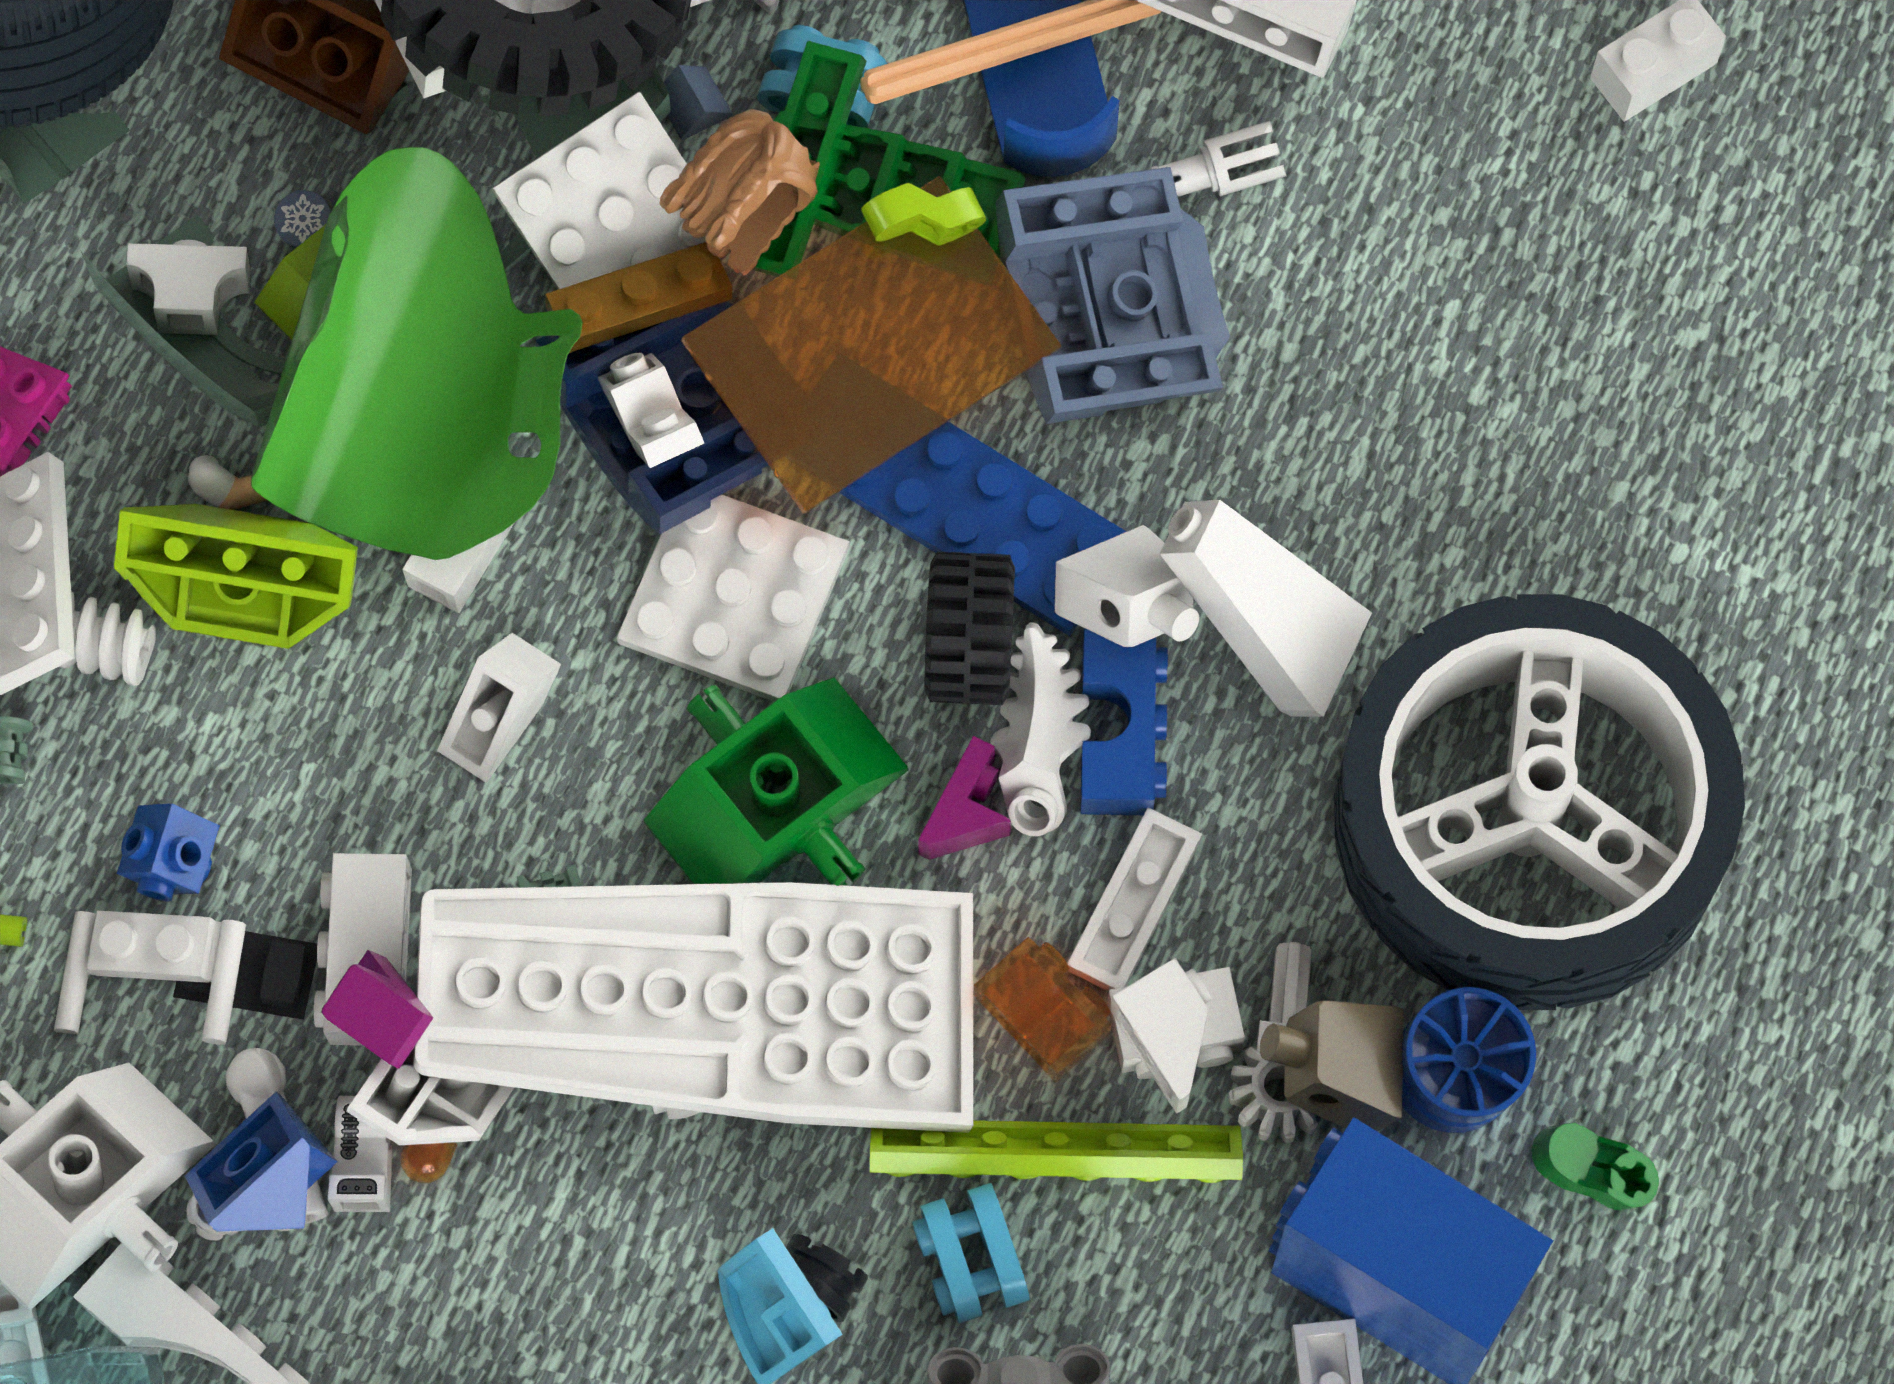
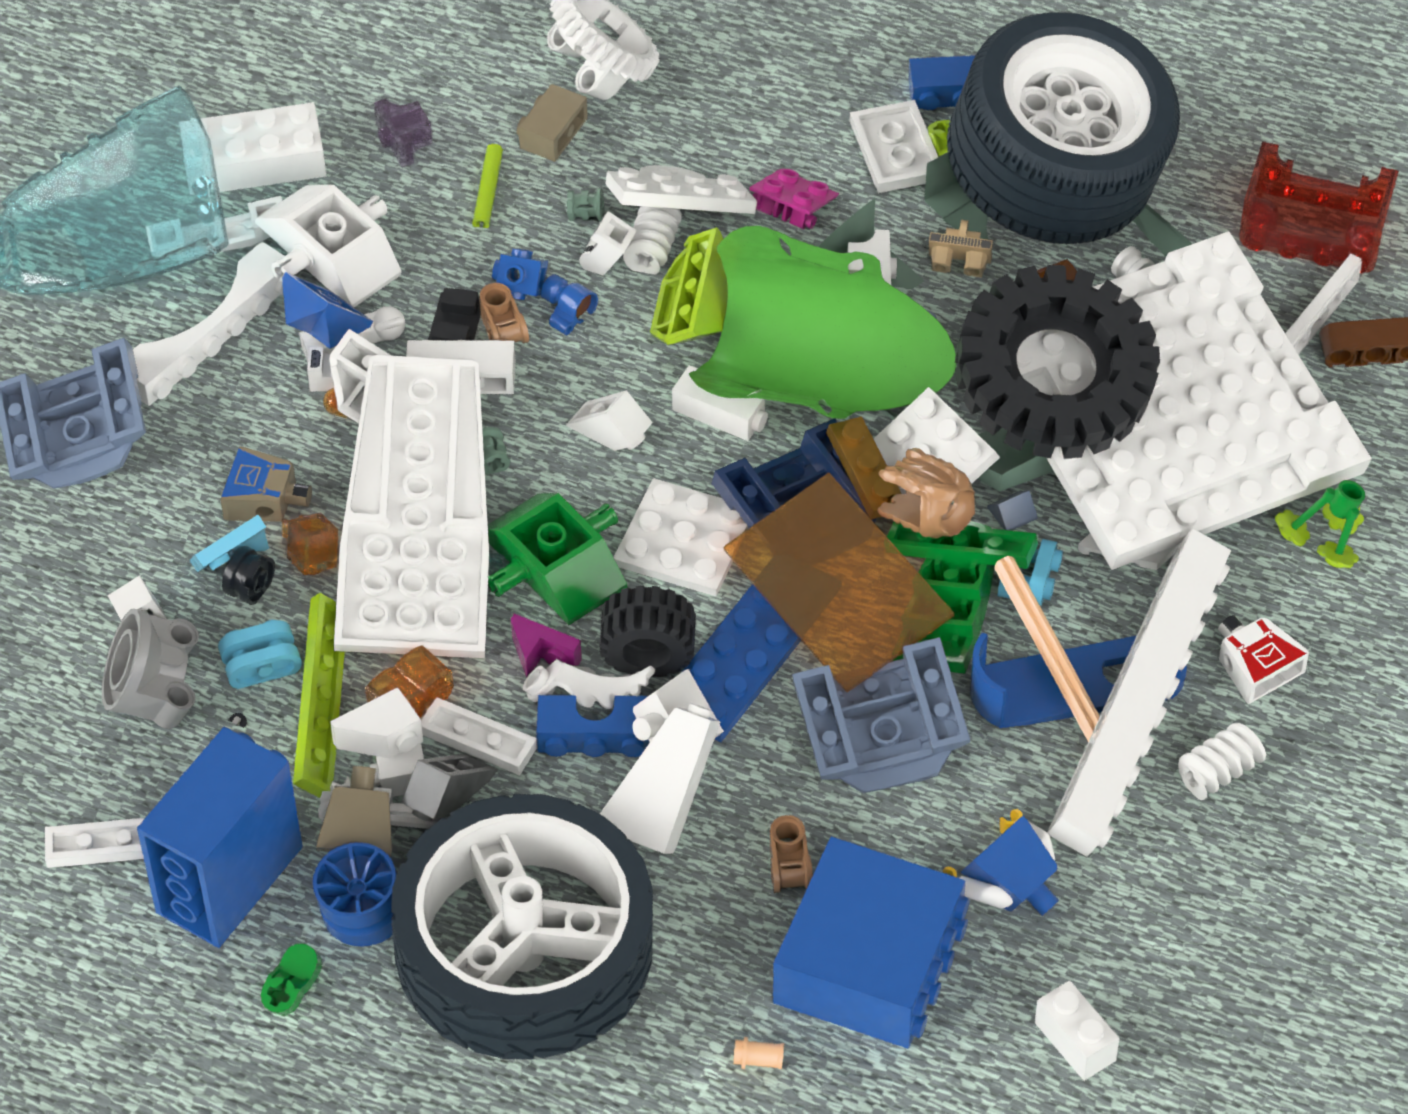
camera: 90 degrees right, 20 degrees down
(118, 711) = (606, 244): none -> white leg
(153, 949) = (462, 278): white plate -> none
(162, 126) = (960, 245): none -> tan hips
(229, 769) = (571, 302): none -> blue piece
(264, 882) = (502, 315): none -> medium nougat piece
(378, 1009) = (406, 338): magenta slope -> none
(621, 1270) = (261, 487): none -> dark tan torso
(649, 408) = (790, 473): white slope -> none
(753, 1177) = (311, 543): none -> clear orange brick
(923, 214) = (918, 603): lime piece -> none
(1089, 1286) = (238, 719): none -> black piece
(1210, 167) = (981, 778): white arm -> none
(1254, 930) = (445, 784): none -> dark grey slope
(1373, 436) = (789, 860): none -> medium nougat piece
(1384, 127) = (1012, 867): none -> blue torso
(1533, 318) = (870, 942): none -> blue brick
(1699, 490) = (758, 1054): none -> light nougat pin

